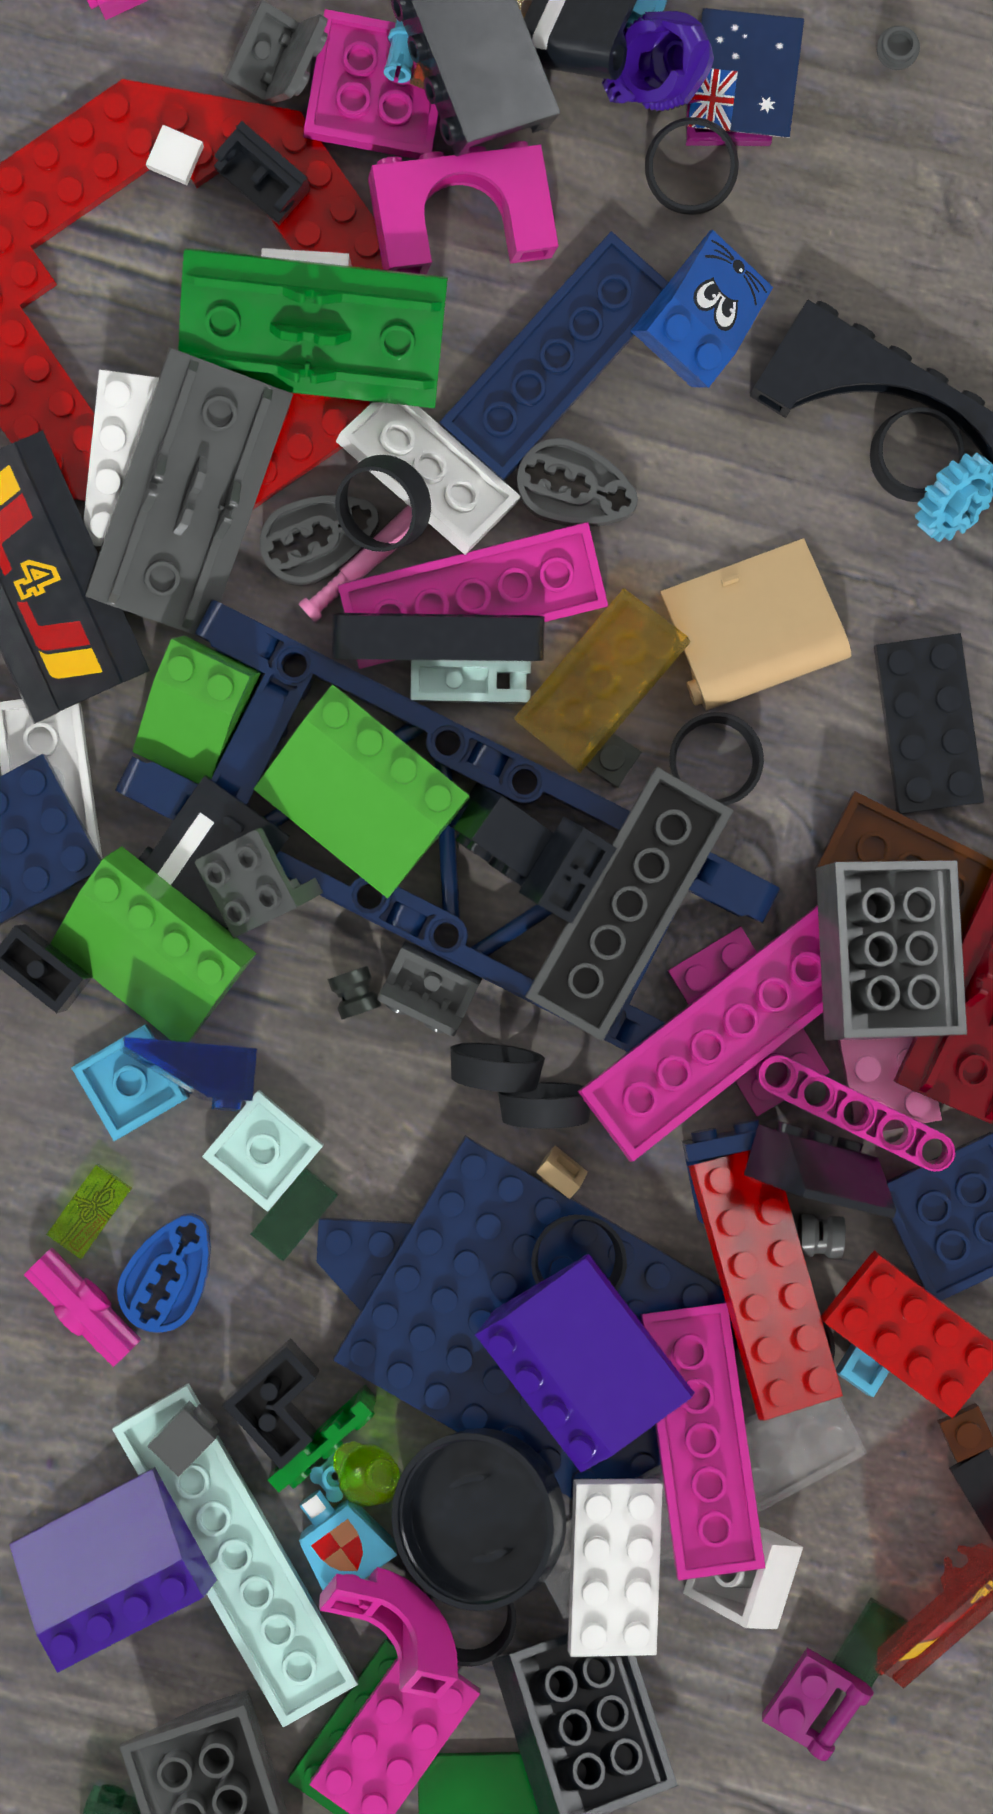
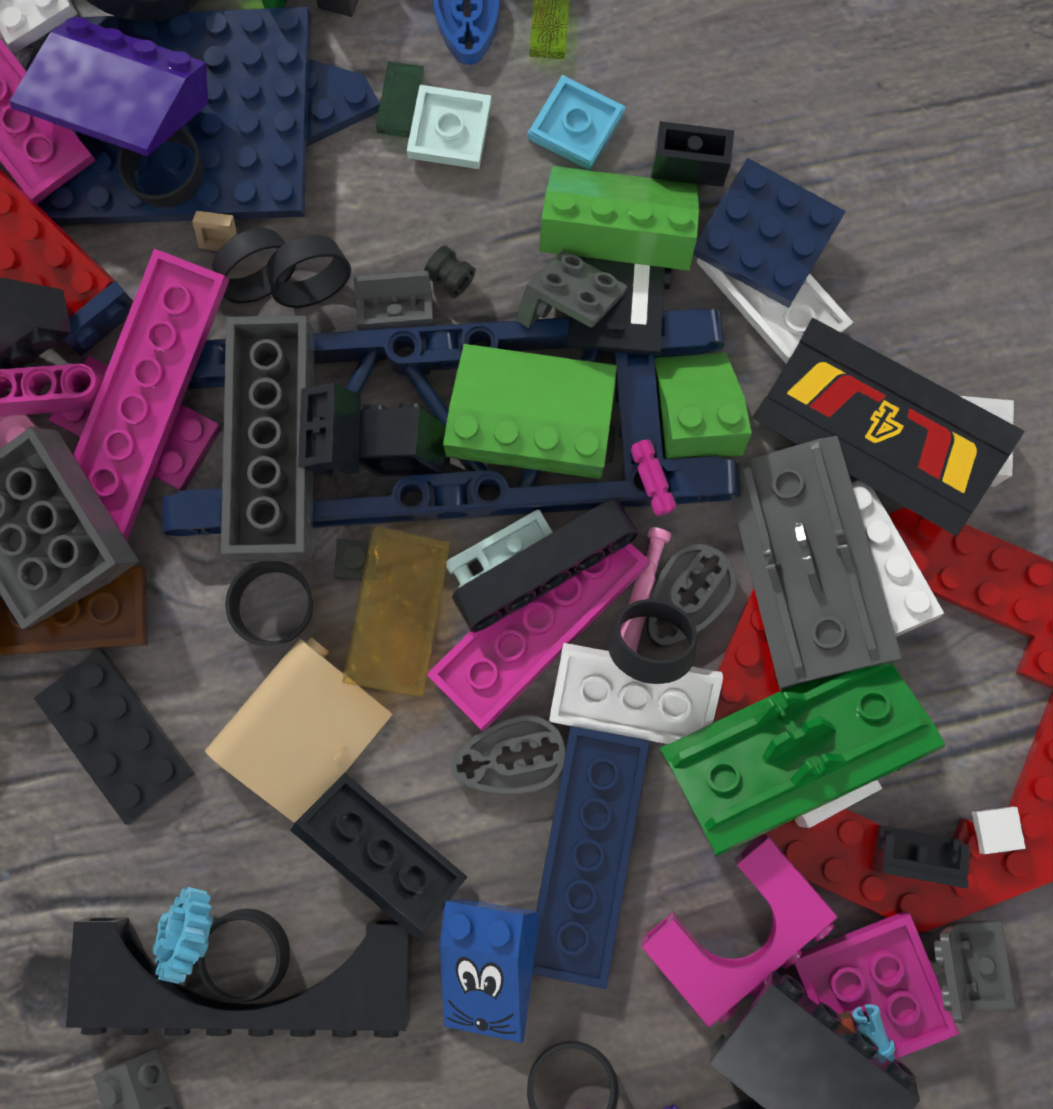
camera: 150 degrees right, 10 degrees down
(204, 1070) = (532, 141): clear blue slope -> none
(287, 658) = (653, 477): none -> dark pink axle
(744, 465) = (379, 855): none -> black plate

